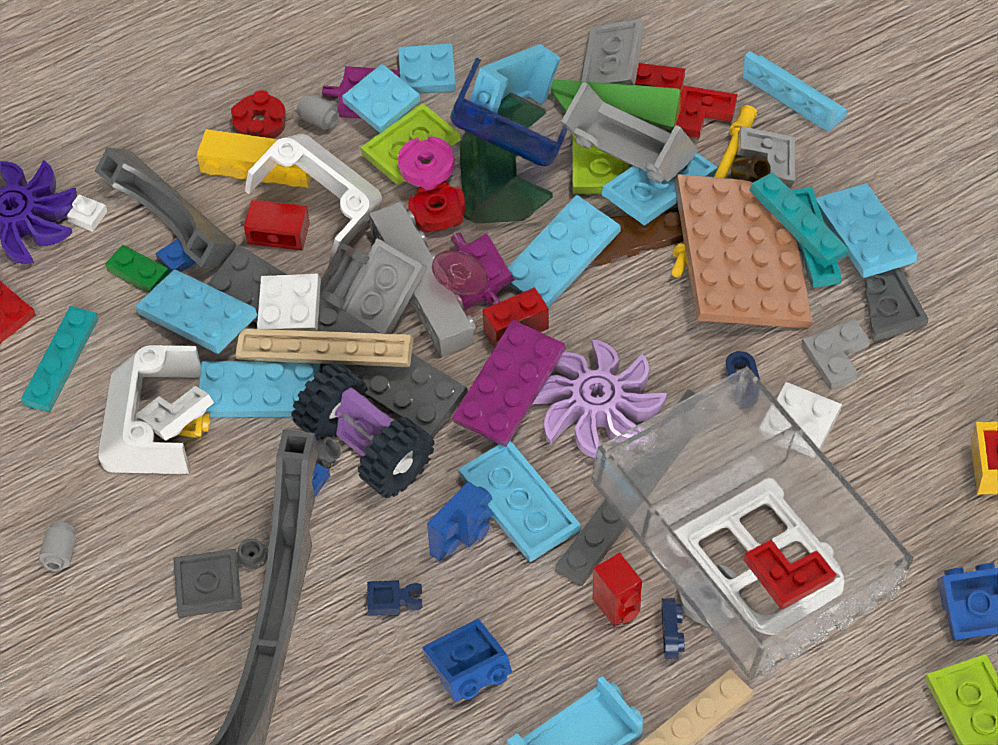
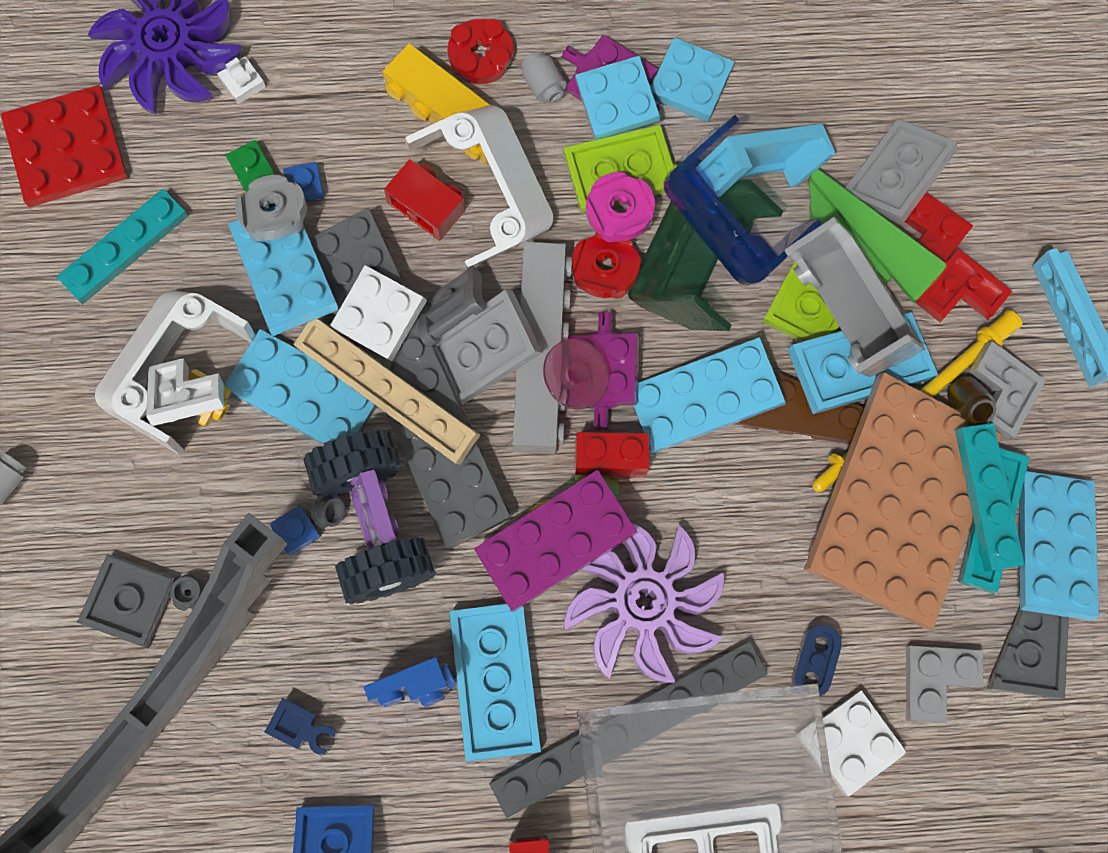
camera: 20 degrees right, 20 degrees up
(180, 275) = (275, 224): none -> light grey plate
(197, 234) = (303, 59): dark grey arch -> none

